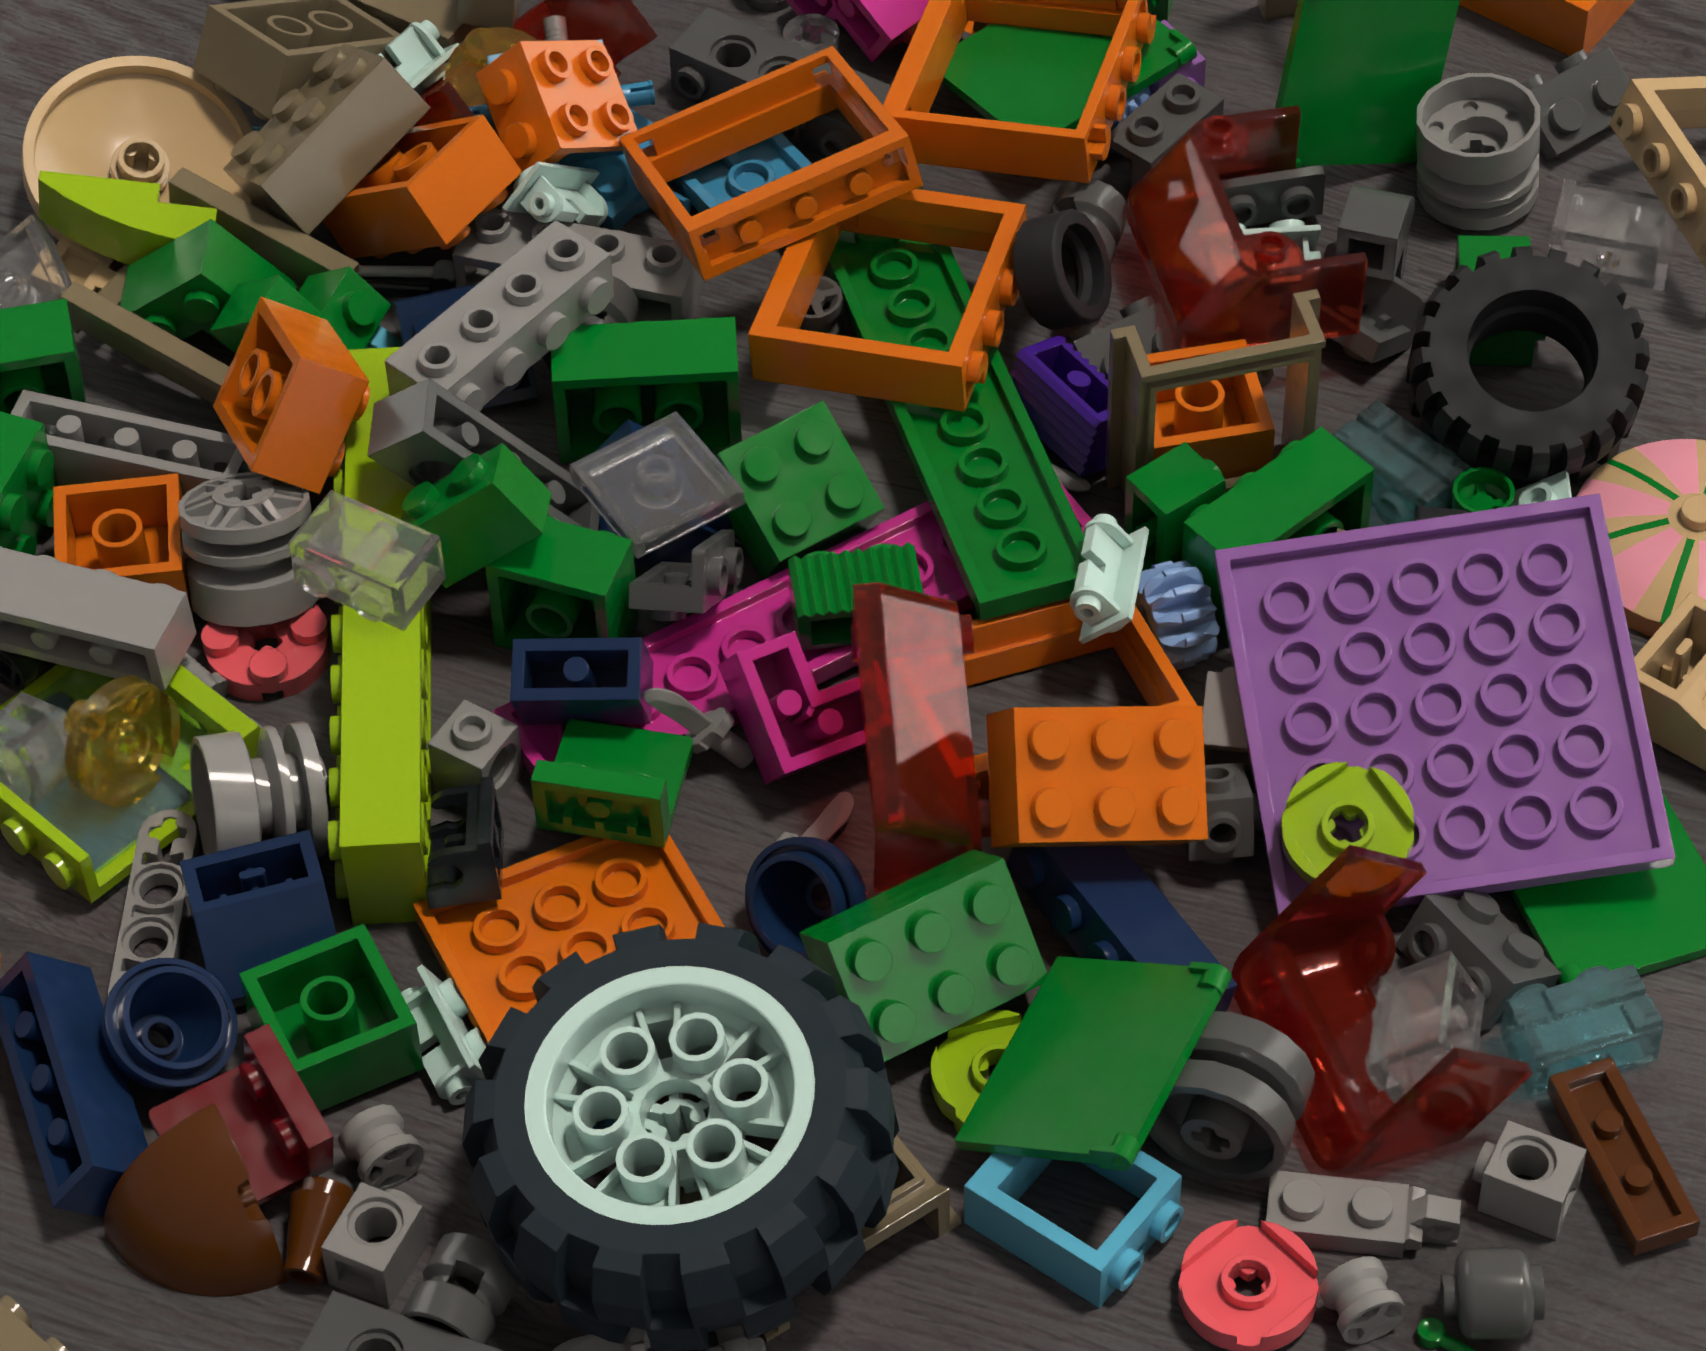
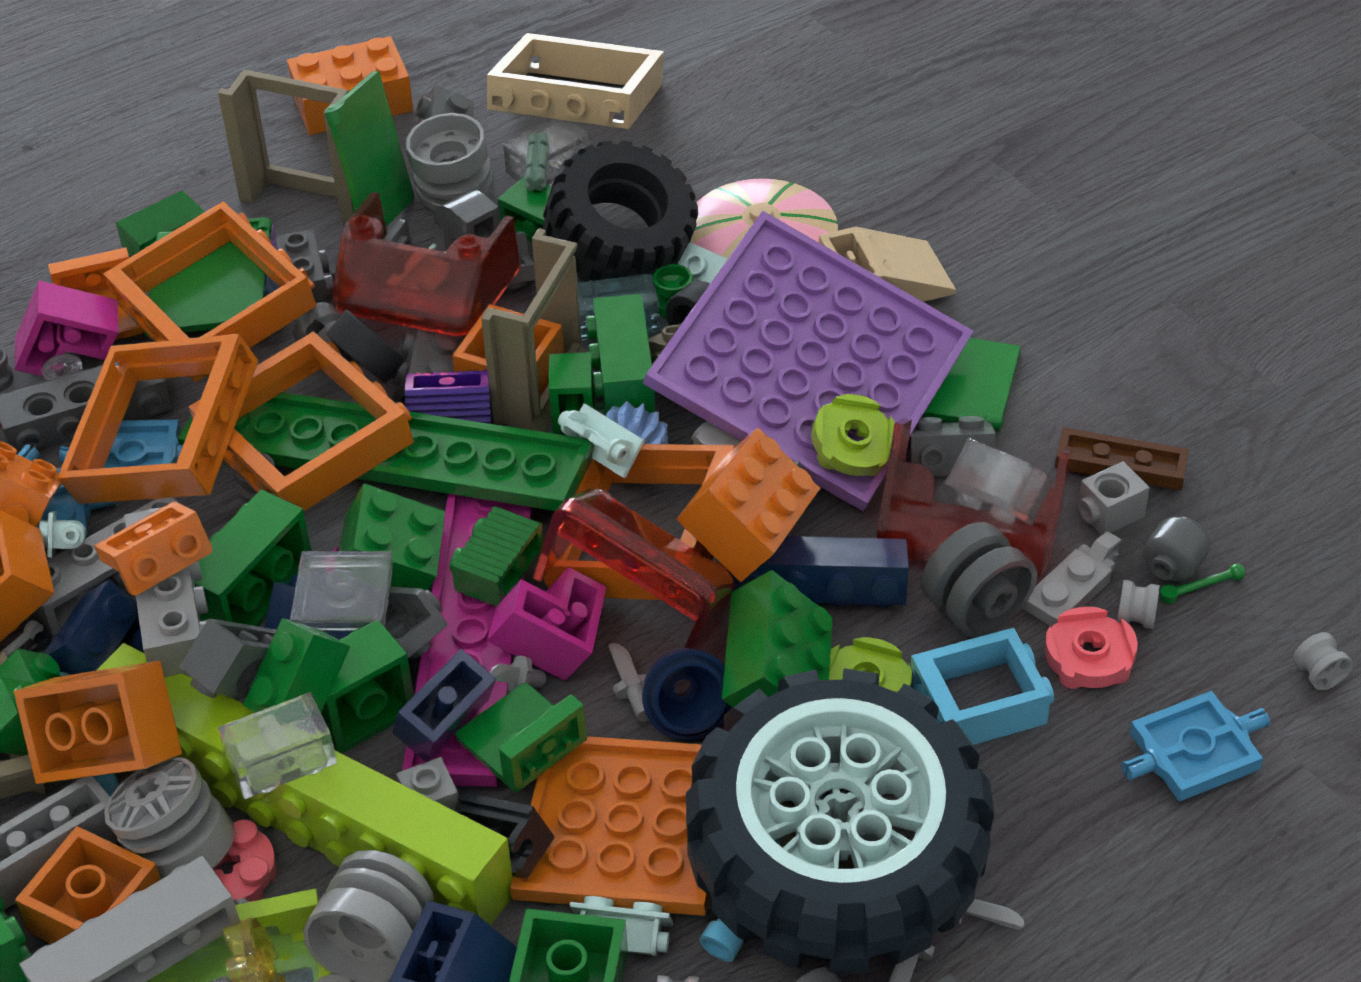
camera: 55 degrees left, 5 degrees down
(506, 272) = (155, 547): none -> orange bracket
(1094, 1060) = (921, 614): green piece -> none
(1556, 226) = (536, 161): none -> sand green axle
(1581, 1023) = (1033, 425): clear light blue brick -> none

